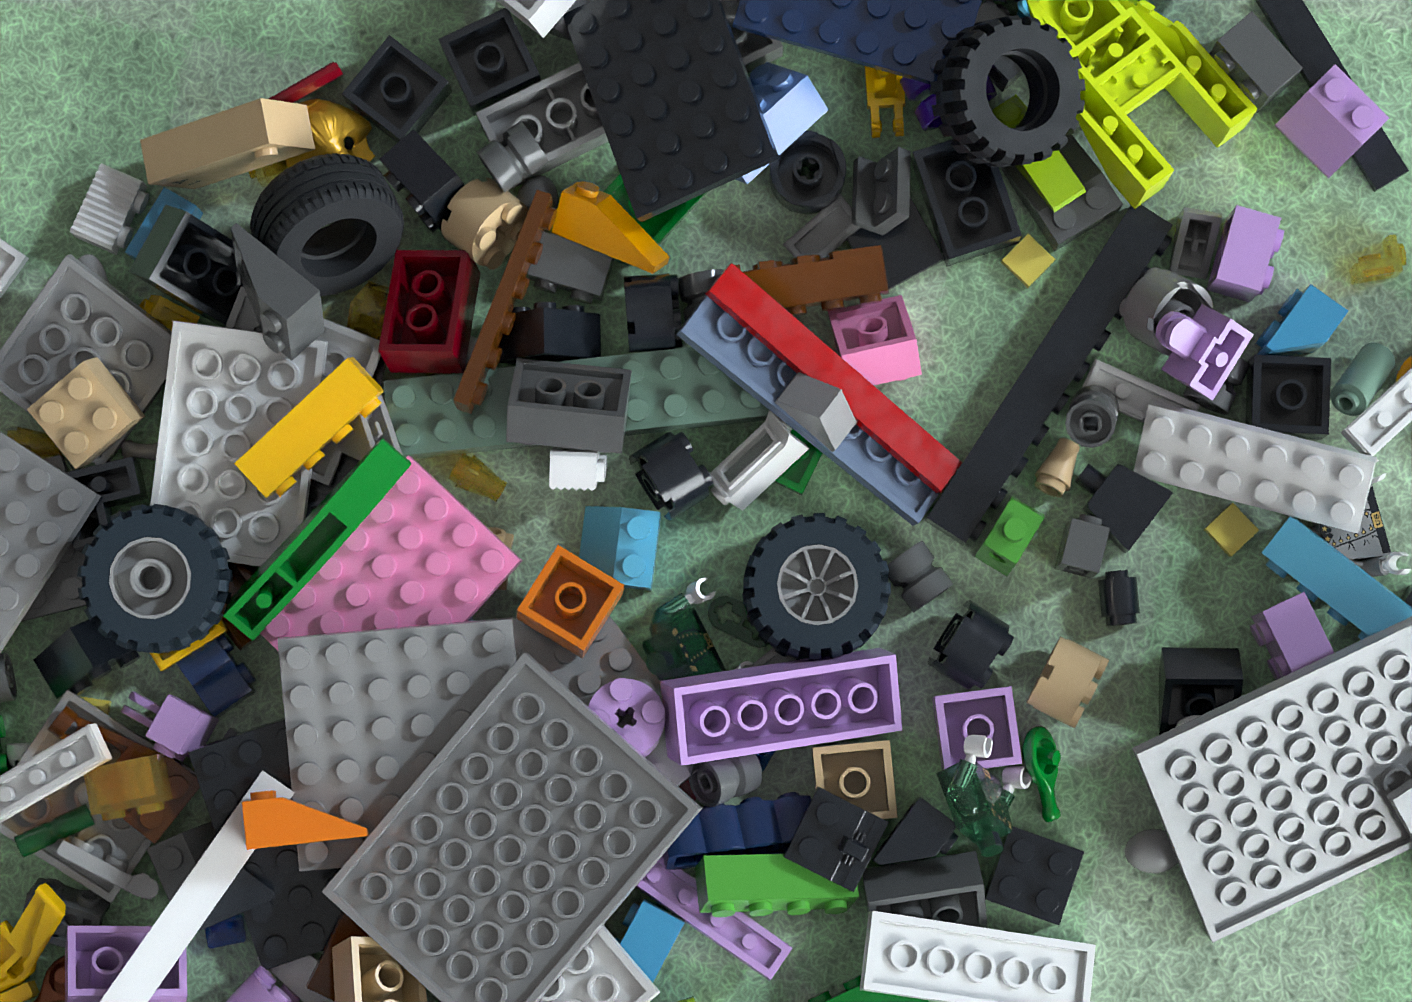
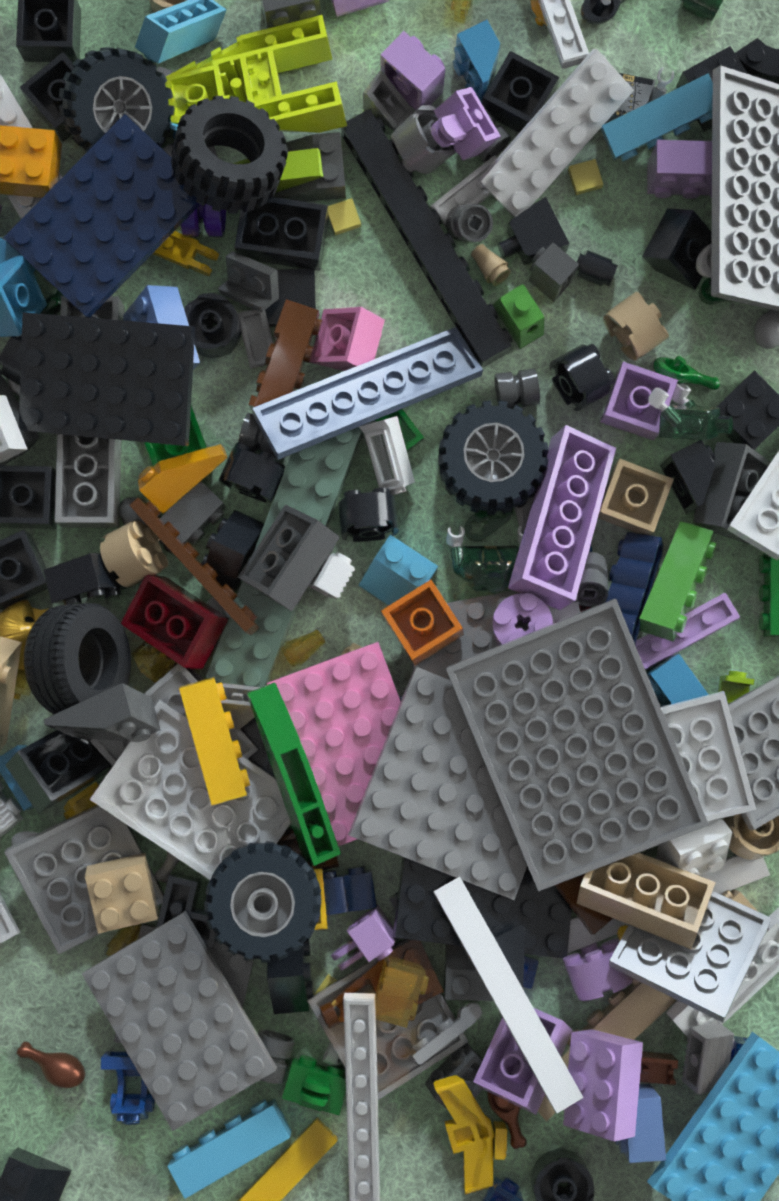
camera: 70 degrees left, 0 degrees up
(59, 828) = (400, 1061): dark green piece -> none
(283, 822) = (484, 889): orange slope -> none
(512, 156) = (98, 510): dark grey wheel -> none
(812, 357) = (358, 373): red tile -> none
(818, 409) = (375, 392): light grey slope -> none
(835, 839) = (669, 526): black hinge -> none
(1362, 379) = (532, 40): sand green brick -> none

